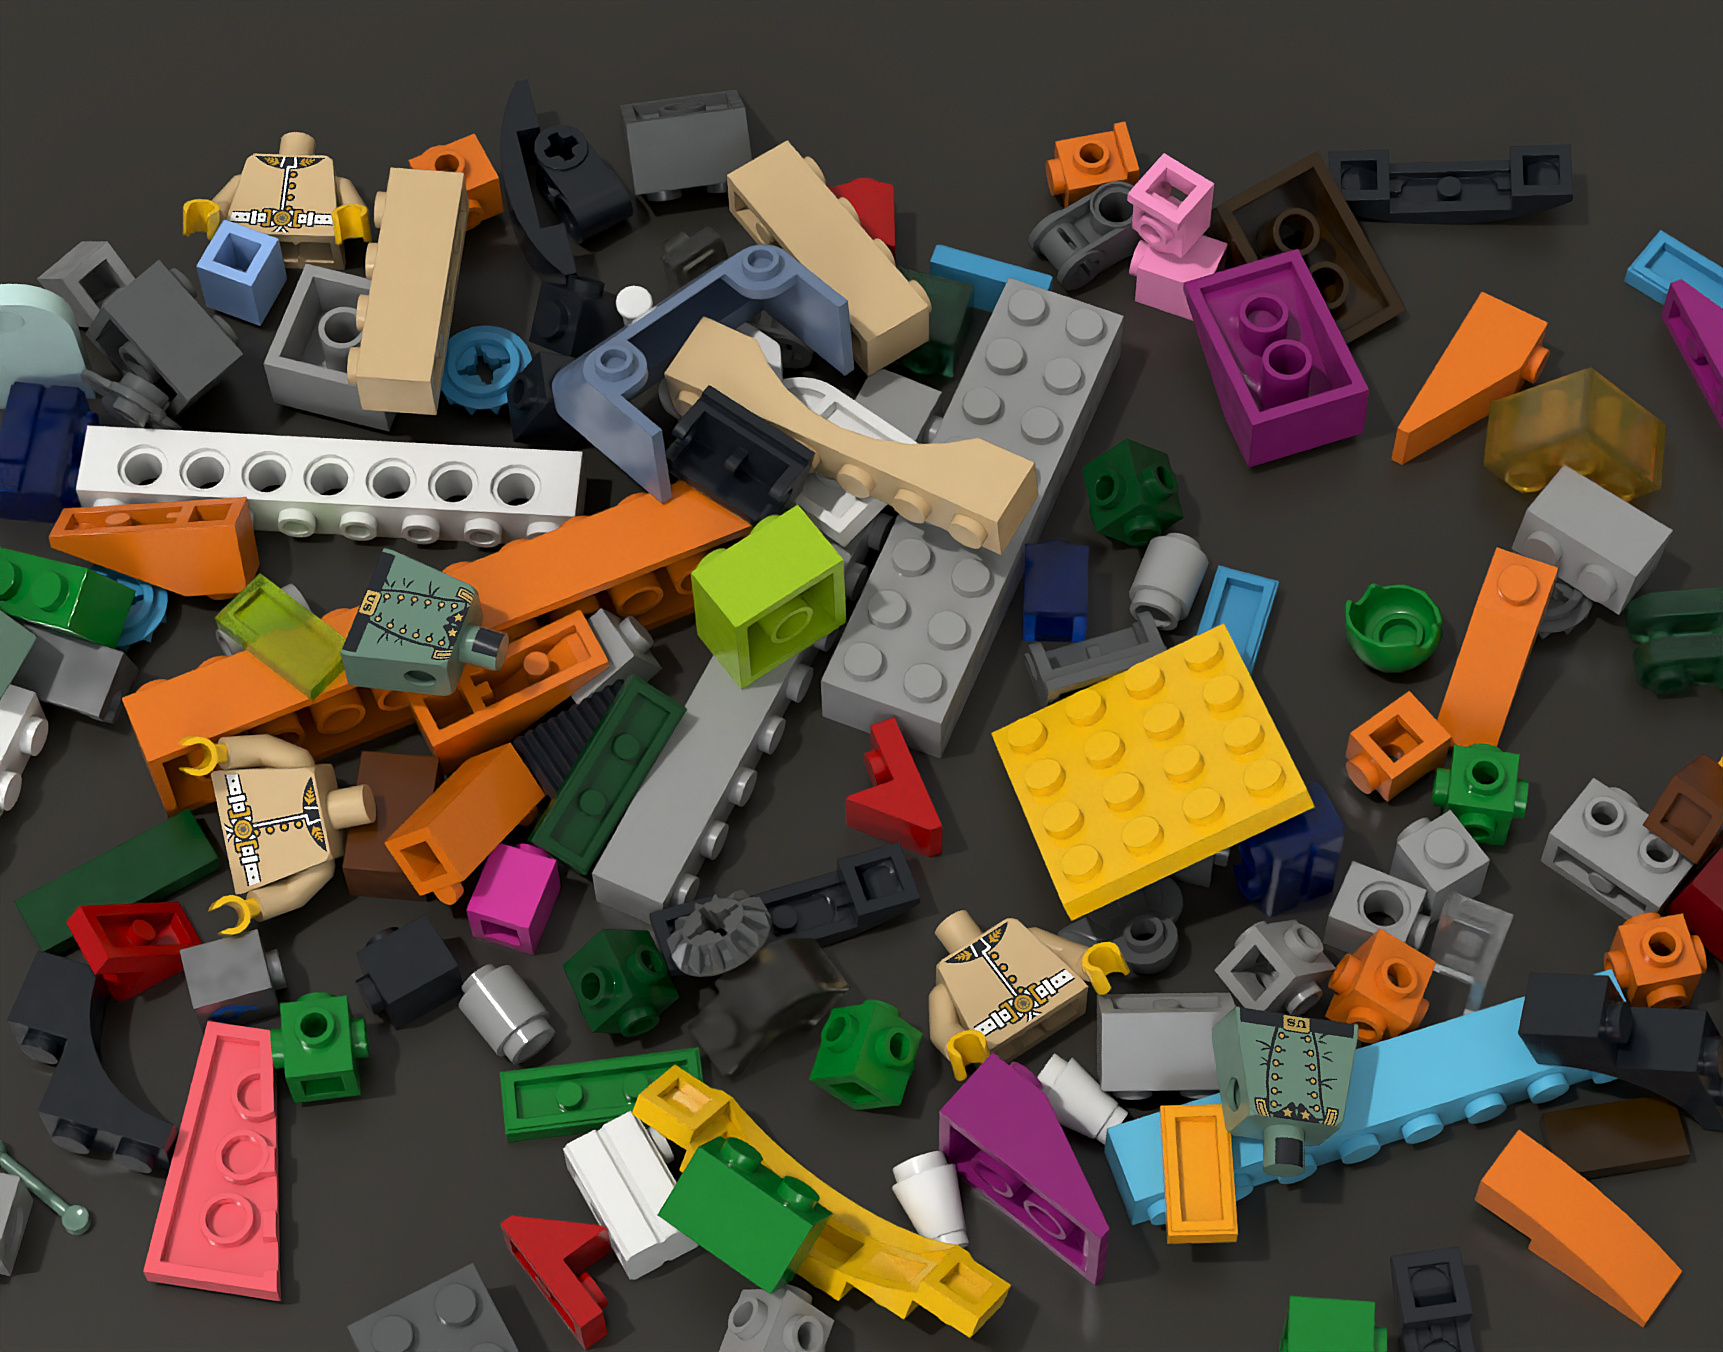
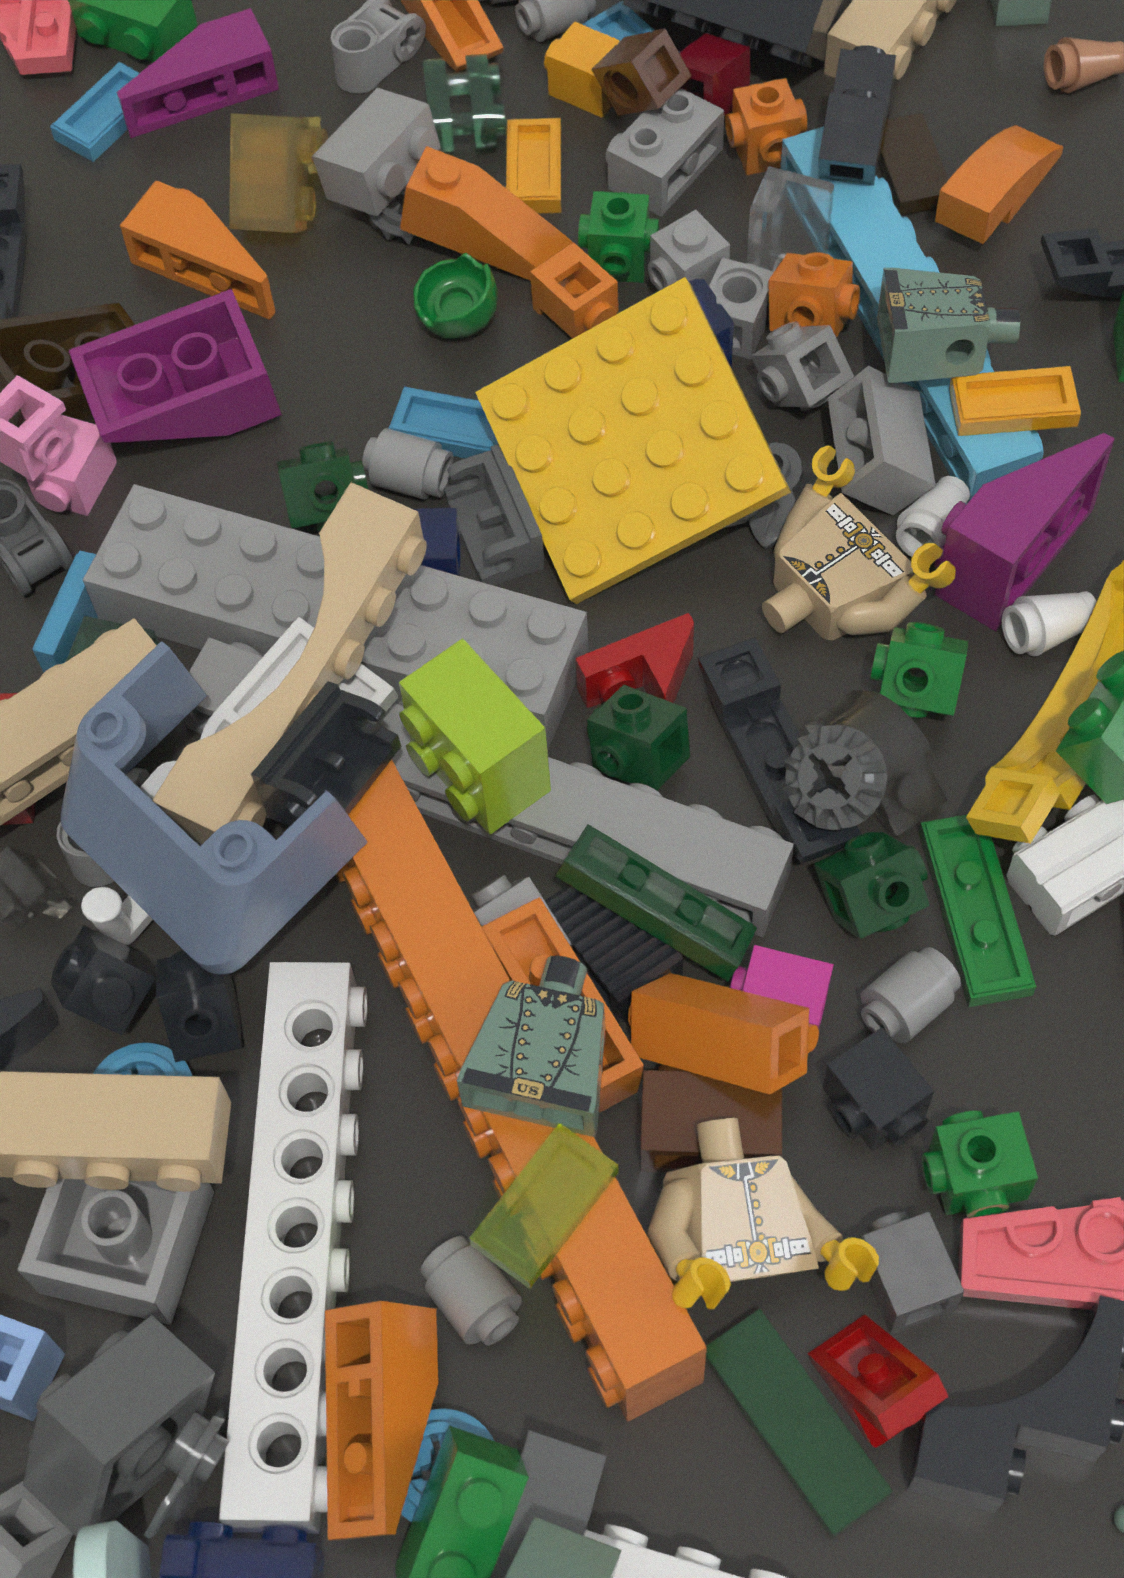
camera: 90 degrees left, 0 degrees up
(804, 777) = (638, 737): none -> dark green brick
(1612, 723) = (535, 162): none -> light orange tile

